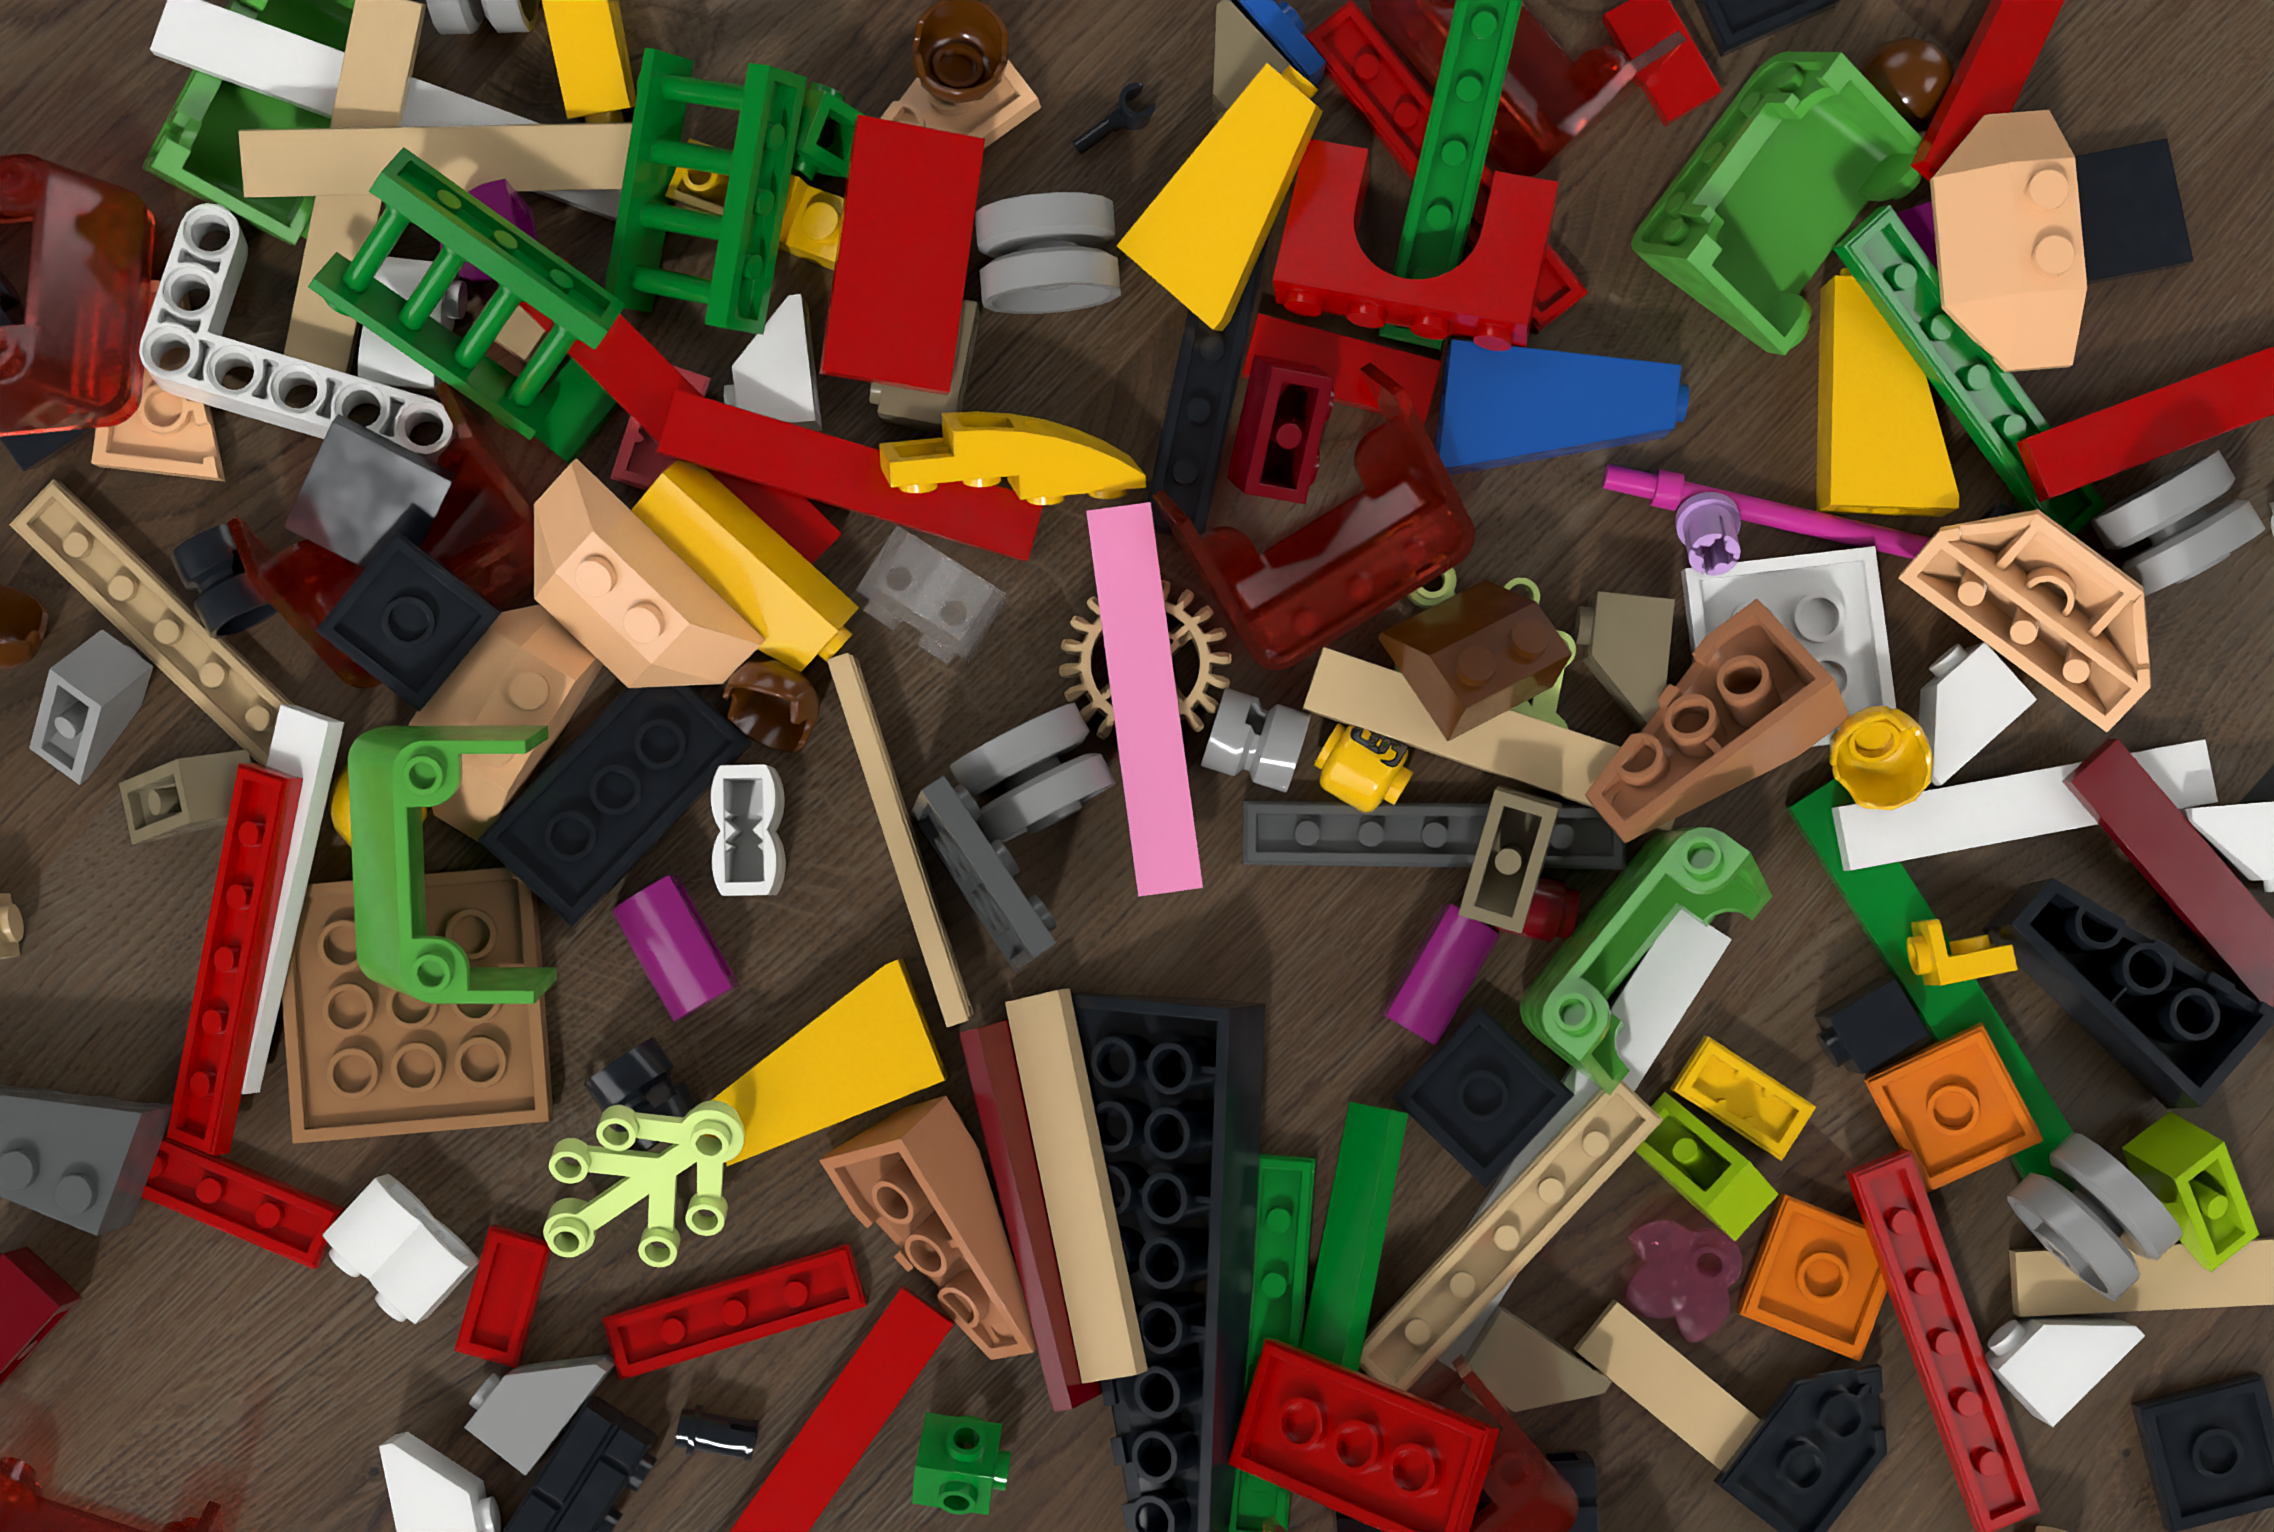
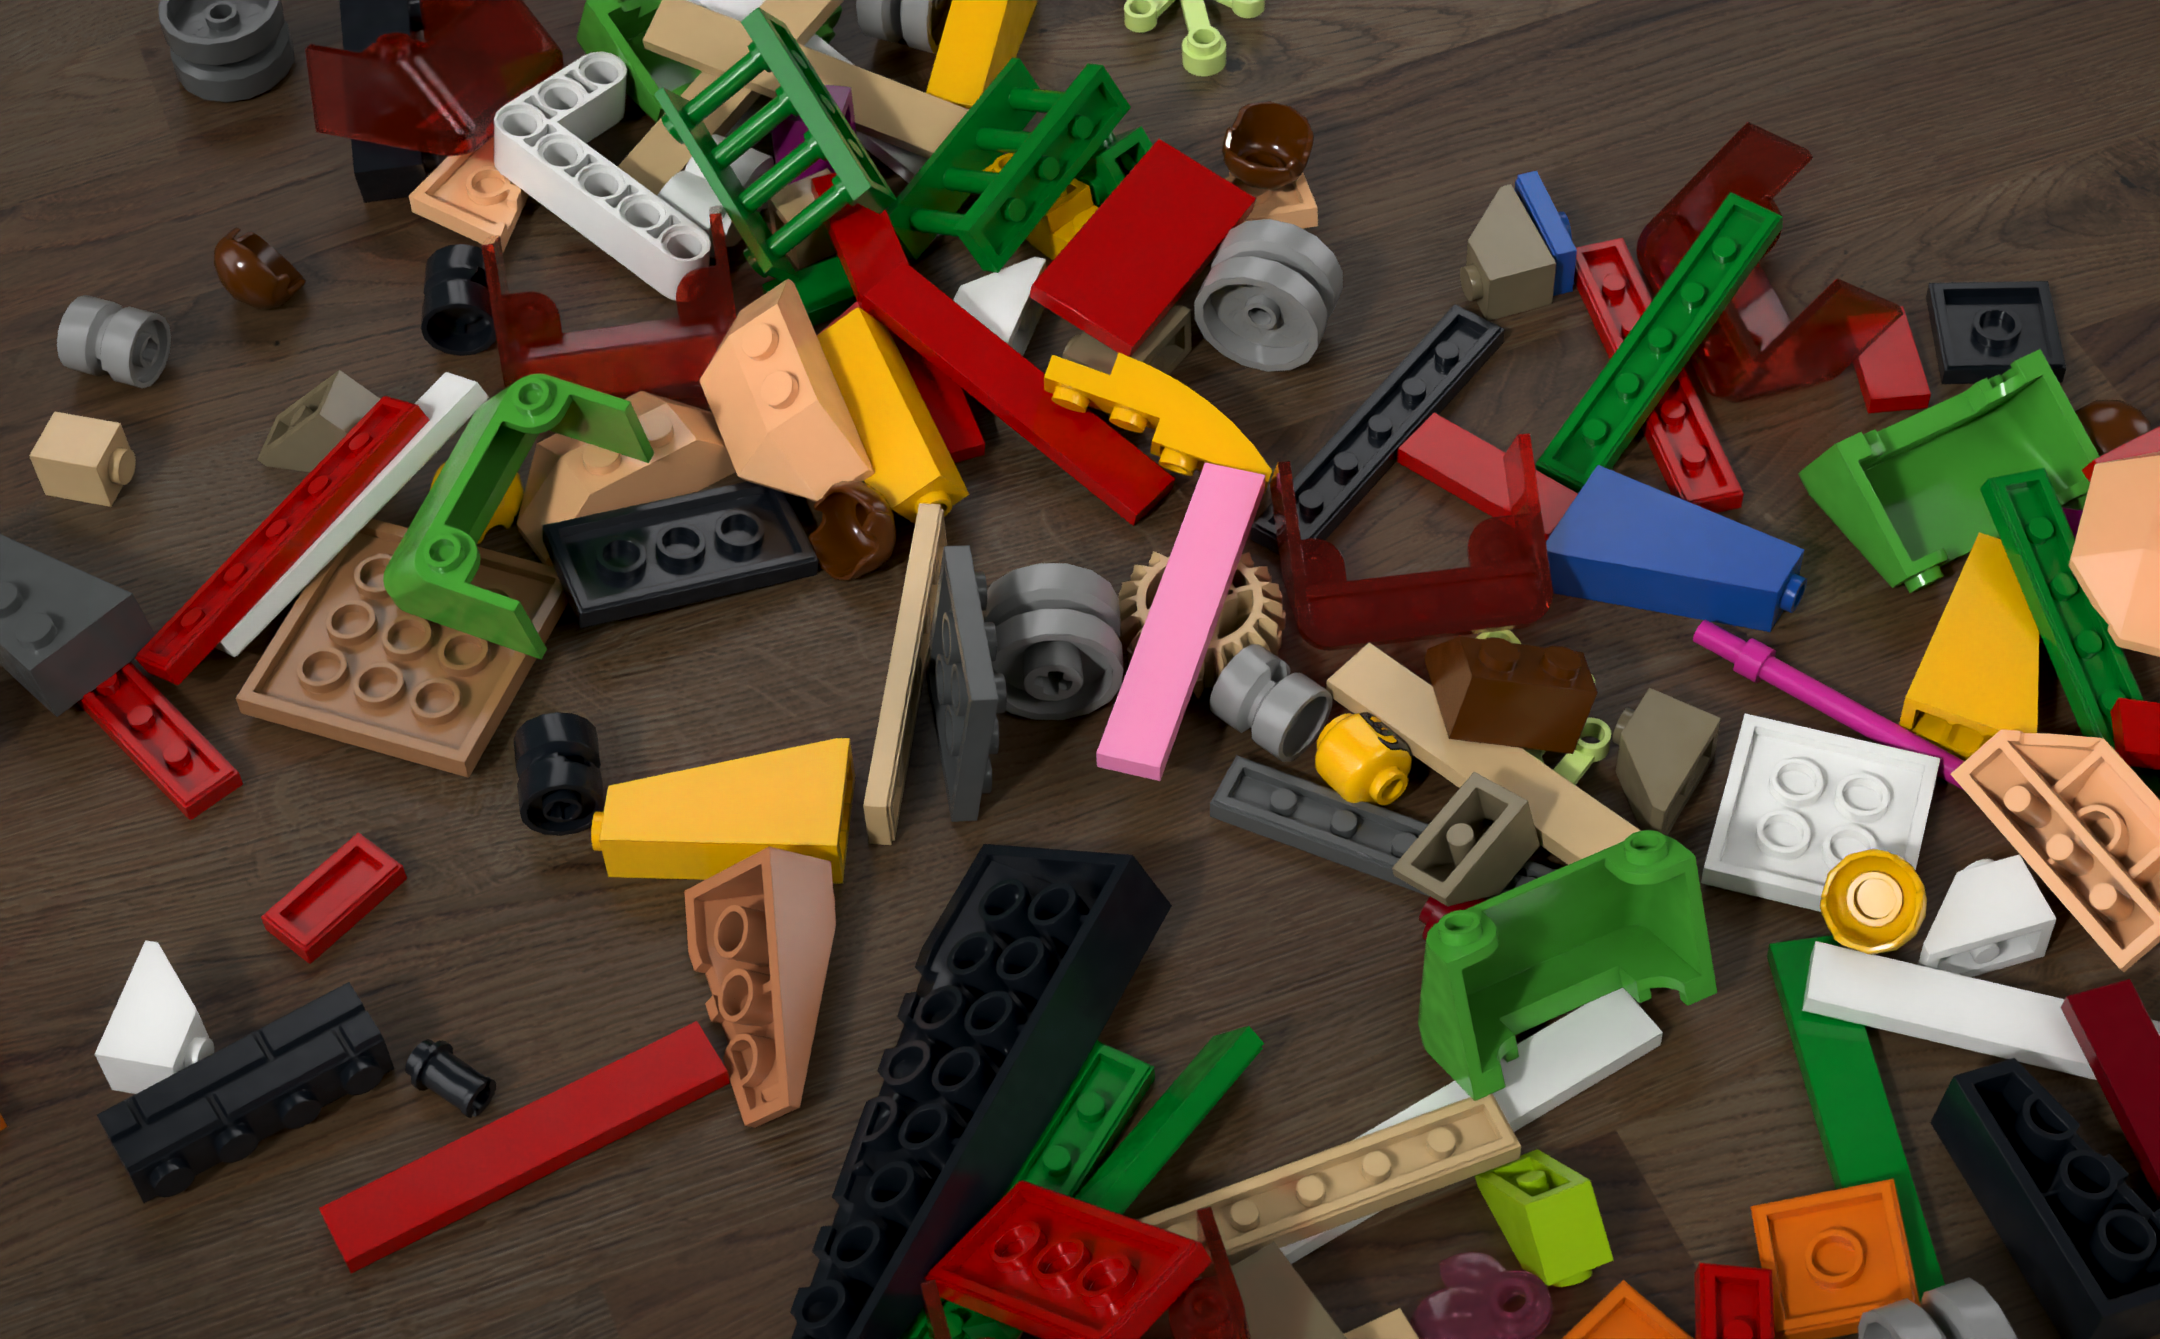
camera: 25 degrees right, 35 degrees down
(88, 704) = (292, 344): light grey slope -> none
(152, 617) = (381, 308): tan tile -> none
(365, 492) = (609, 276): tile -> none
(399, 1249) = (268, 815): white brick -> none
(409, 620) = (592, 345): black tile -> none
(533, 1406) = (302, 966): light grey slope -> none
(645, 1175) = (525, 822): yellowish green plant -> none
(675, 947) = (658, 681): magenta brick -> none
(735, 1311) = (532, 990): red tile -> none
(748, 811) = (776, 606): white brick -> none
(930, 595) = (1037, 505): clear brick -> none
(959, 1464) = (661, 1178): green brick -> none
(1013, 1158) = (854, 1007): dark red tile -> none
(1076, 1186) = (908, 998): tan tile -> none
(1119, 118) = (1394, 256): black hand -> none
(1223, 200) = (1444, 299): yellow slope -> none
(1281, 429) = (1410, 476): dark red brick -> none
(1440, 974) = (1353, 950): magenta brick -> none
(1481, 299) = (1645, 437): red arch -> none
(1483, 1096) = (1348, 1075): black tile -> none
(1709, 529) = (1801, 689): lavender bush -> none
(1730, 718) = (1762, 813): nougat wedge -> none
(1743, 1097) = (1627, 1184): yellow plate -> none
(1869, 1026) = (1774, 1153): black brick -> none
(1968, 958) = (1889, 1117): yellow bracket -> none

